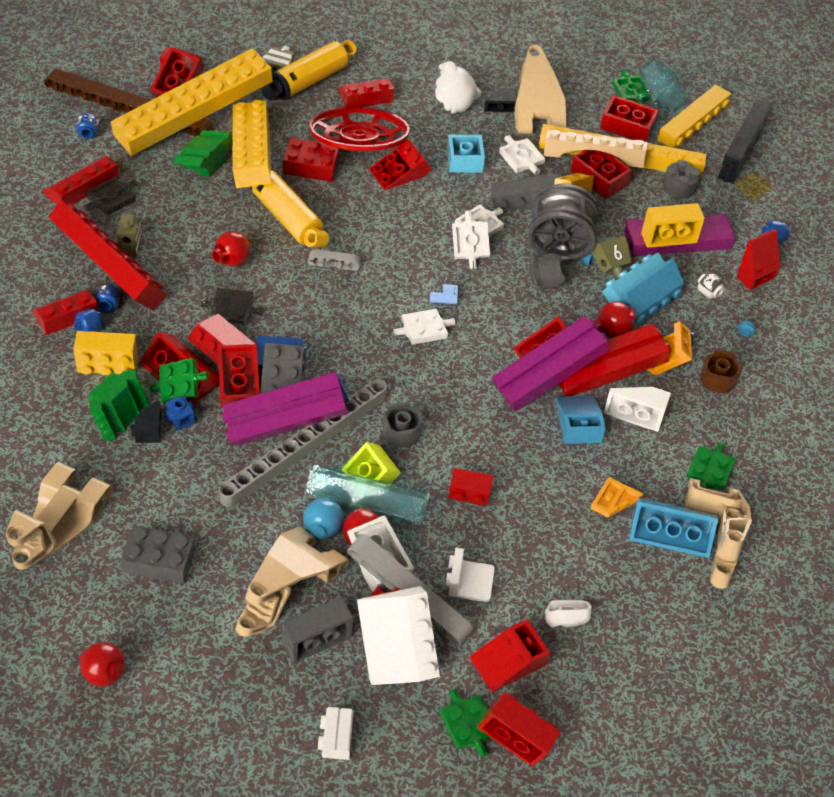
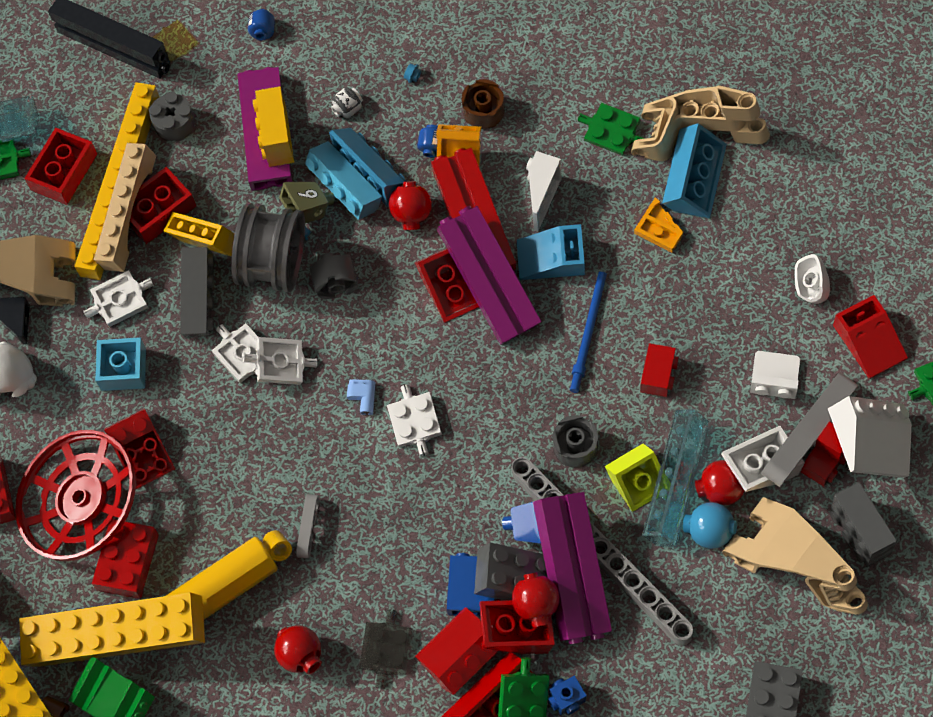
camera: 75 degrees left, 15 degrees up
(254, 377) = (535, 599): none -> red brick
(471, 435) = (579, 368): none -> blue bar
(694, 117) = (54, 91): yellow brick -> none
(760, 260) = (321, 45): red slope -> none

